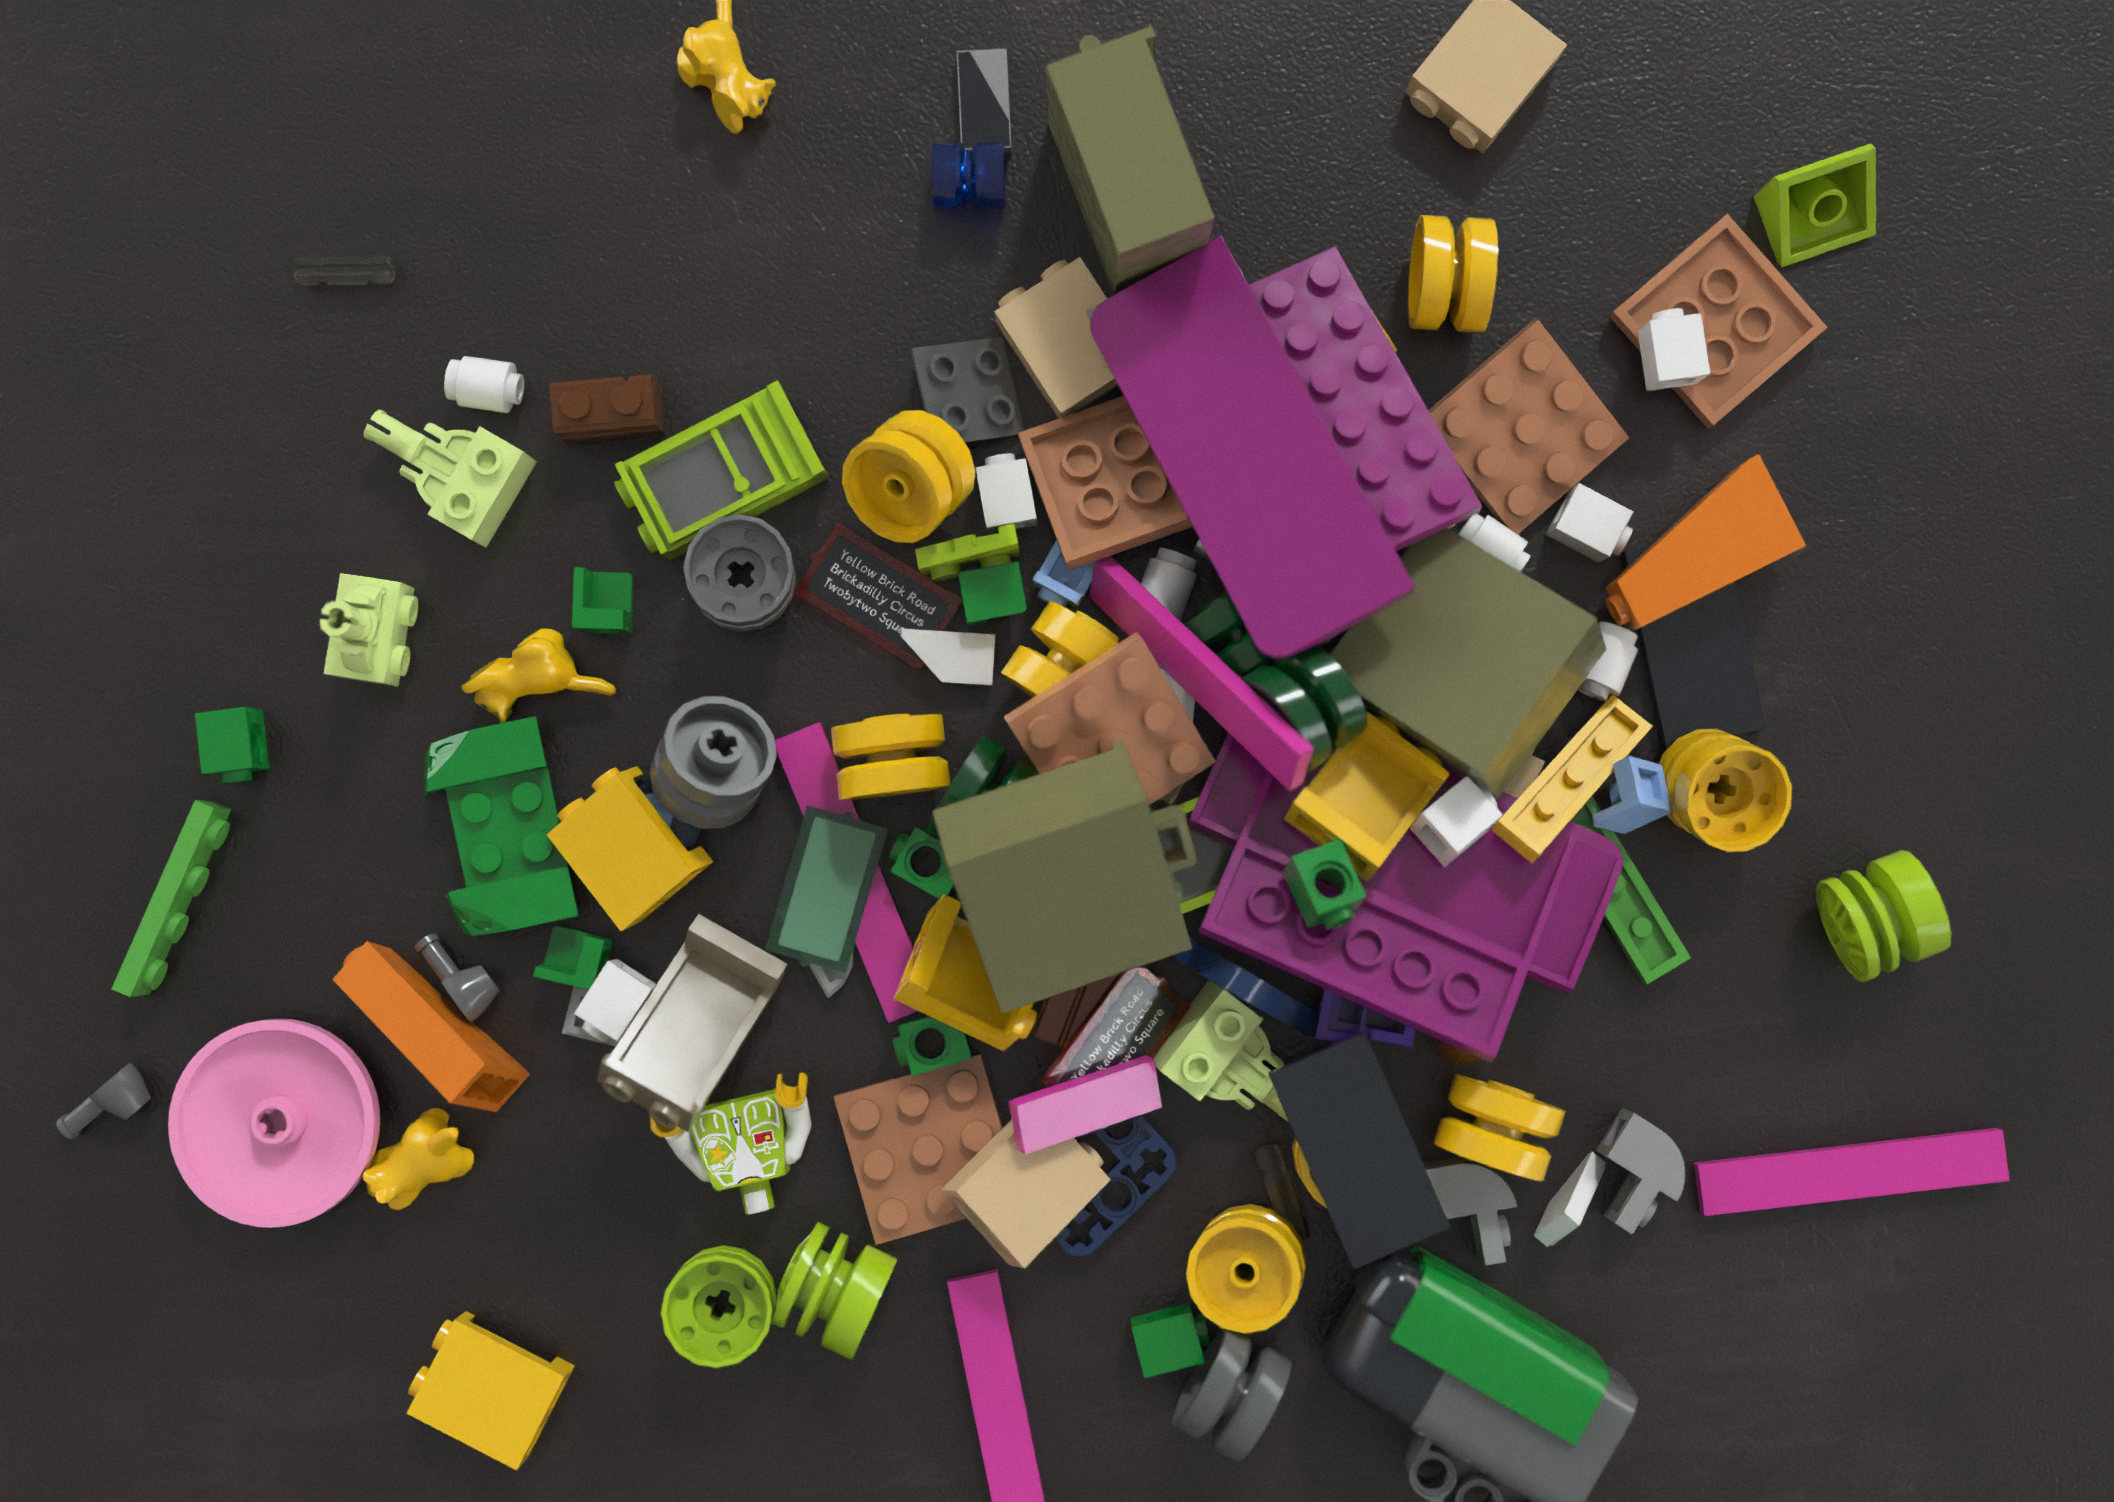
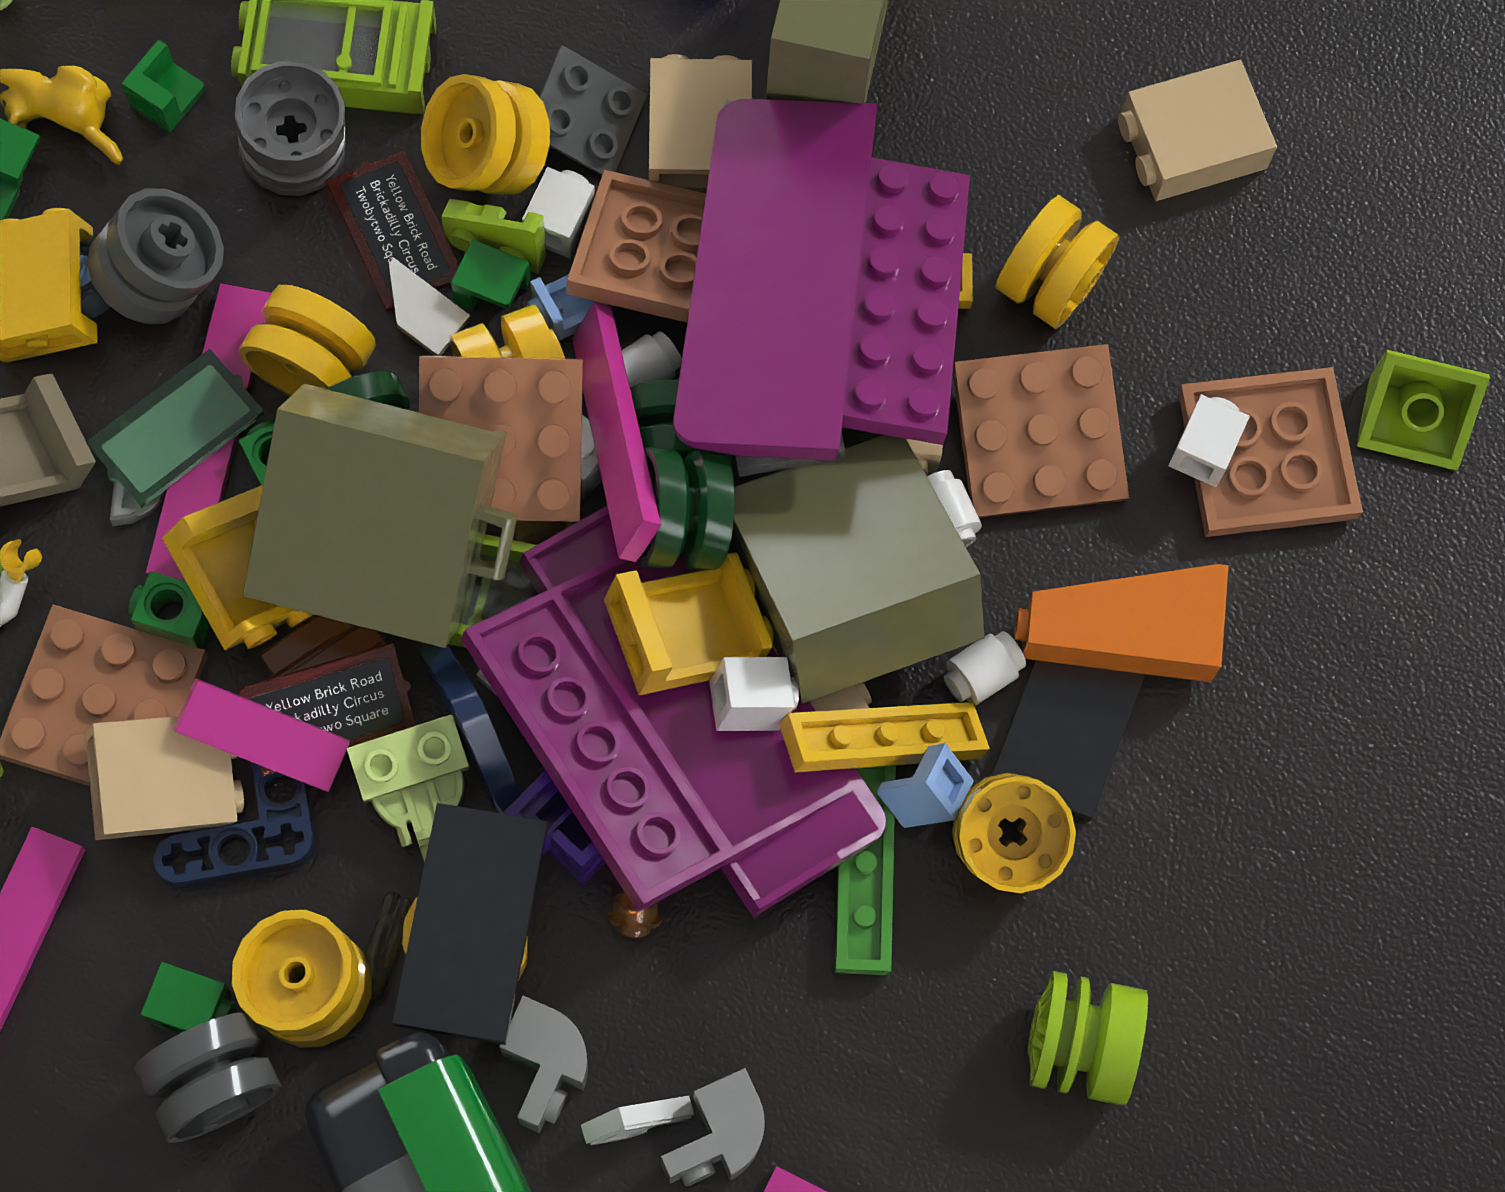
camera: 20 degrees right, 15 degrees down
(1330, 864) = (601, 642): green brick -> none
(1499, 1125) = (621, 993): yellow wheel -> none
(1591, 524) = (1047, 545): white brick -> none

